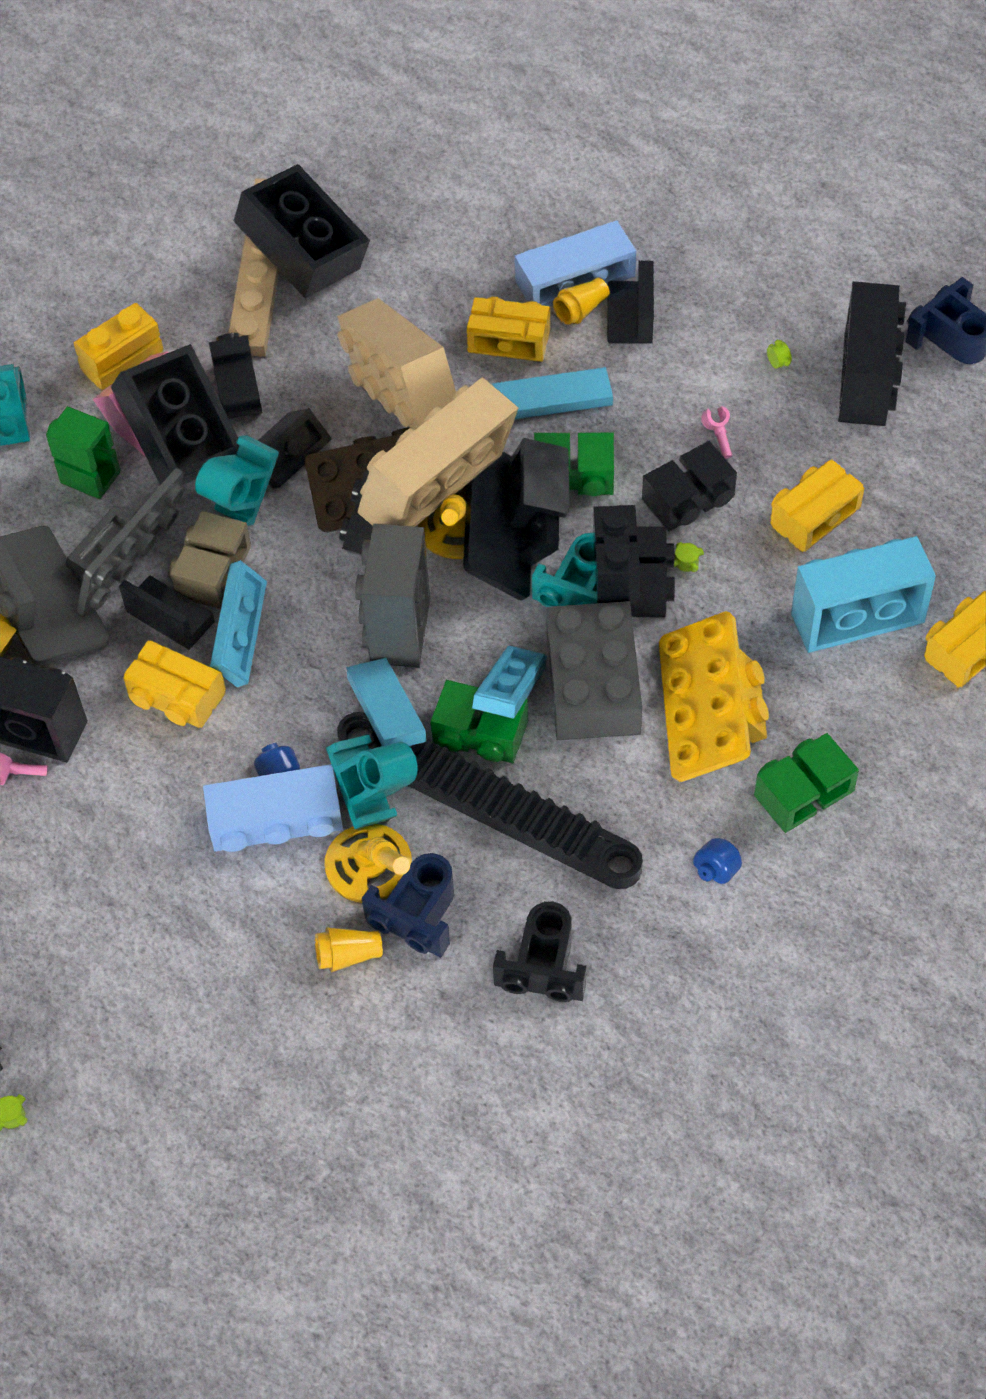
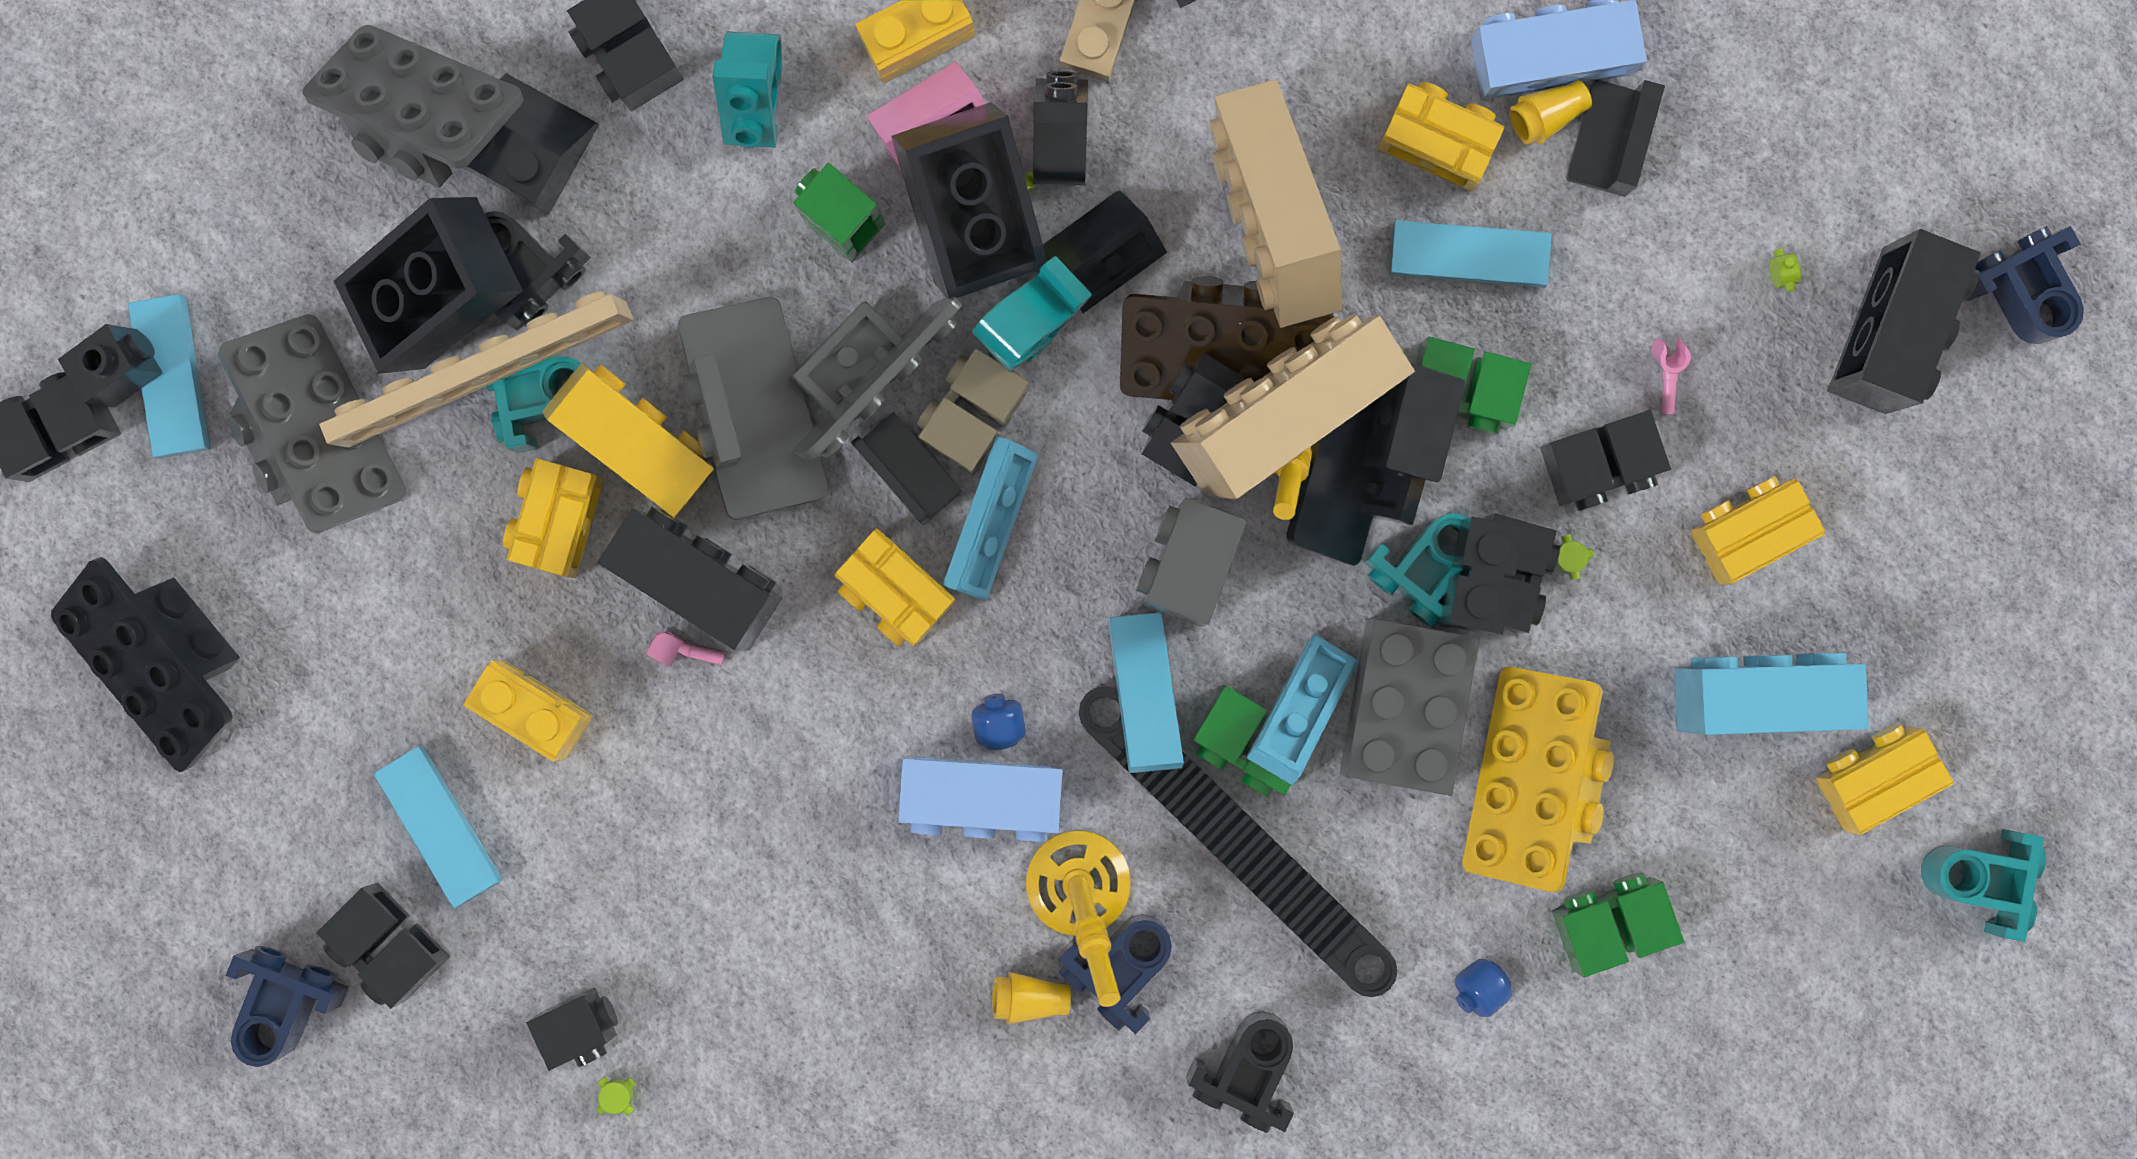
camera: 15 degrees right, 30 degrees up
(371, 776) = (1103, 800): teal pin -> none

